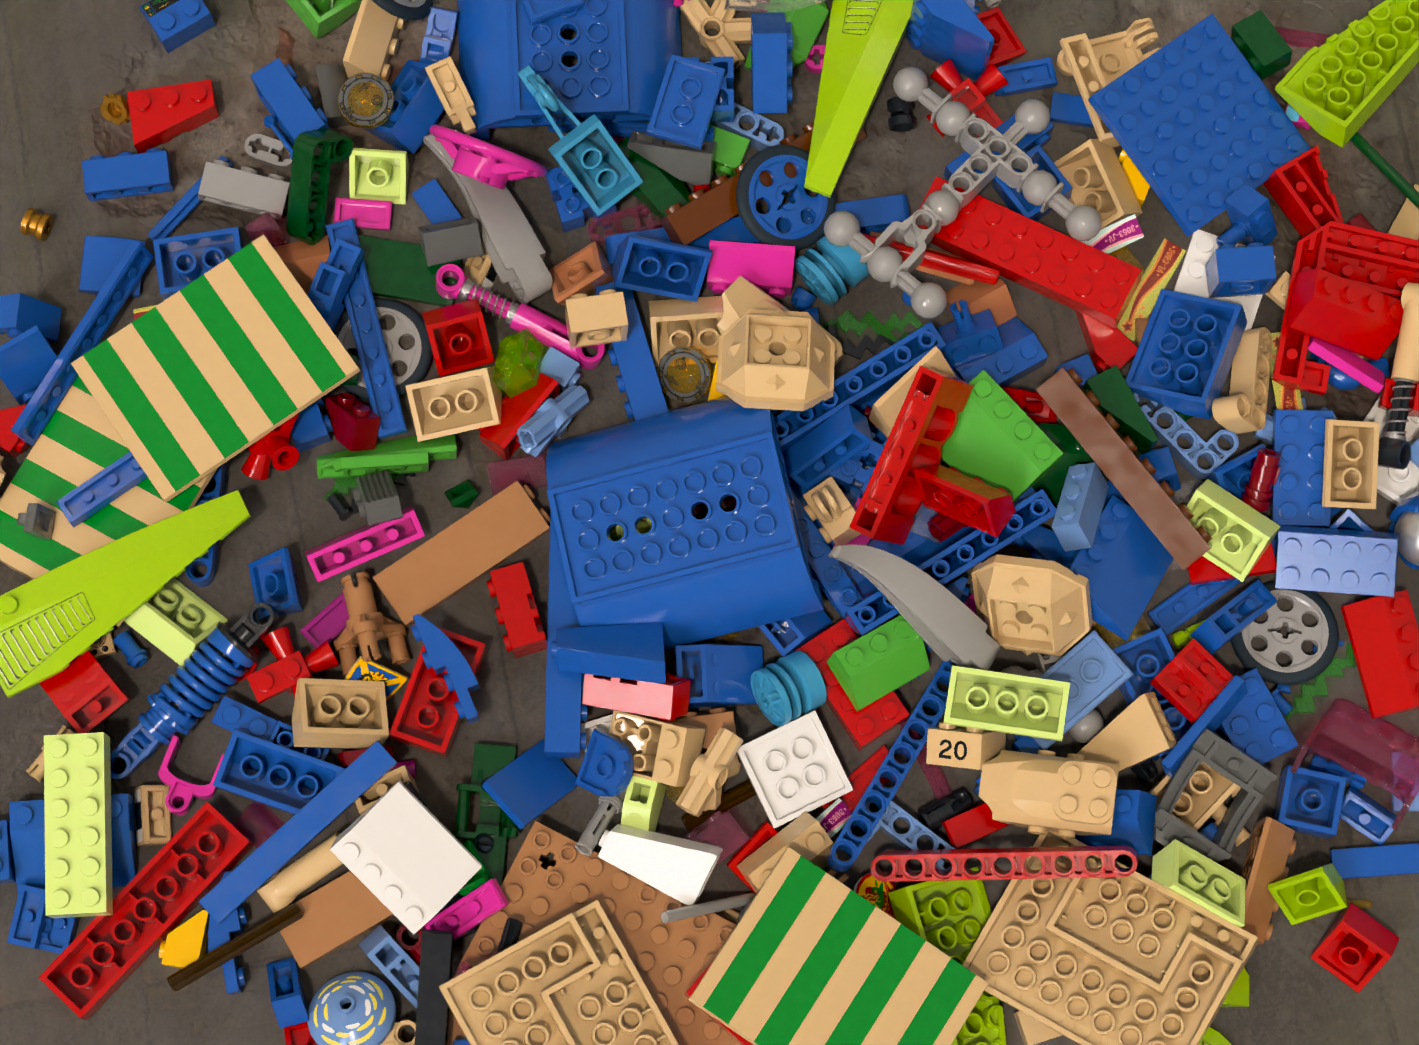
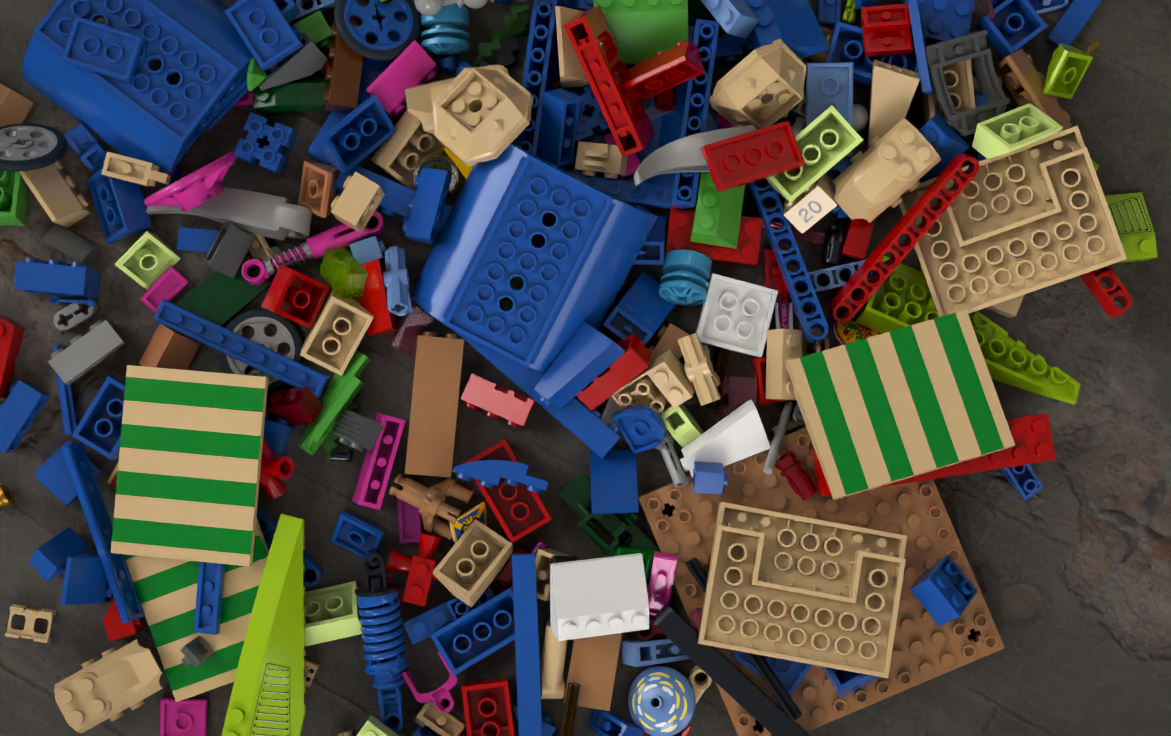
camera: 45 degrees left, 10 degrees up
(85, 693) = (331, 706): red slope -> none
(134, 654) = (325, 655): blue pin -> none
(258, 823) = (500, 663): clear pink slope -> none
(266, 225) = (123, 358): clear pink slope -> none
(310, 181) = (112, 304): dark green beam -> none
(333, 280) = (194, 345): blue slope -> none
(365, 100) = (91, 228): tile -> none
(462, 495) = (396, 375): dark green slope -> none
(586, 153) = (245, 118): dark azure slope -> none
(605, 222) = (296, 144): clear pink beam -> none
(611, 869) = (709, 477): none -> blue brick
(635, 129) = (255, 74): none -> bright green slope
(649, 387) = (427, 205): none -> blue slope
(683, 957) = (796, 476): none -> dark red axle
(954, 646) = (752, 156): none -> red tile
(1355, 947) = (1117, 73): red slope -> none

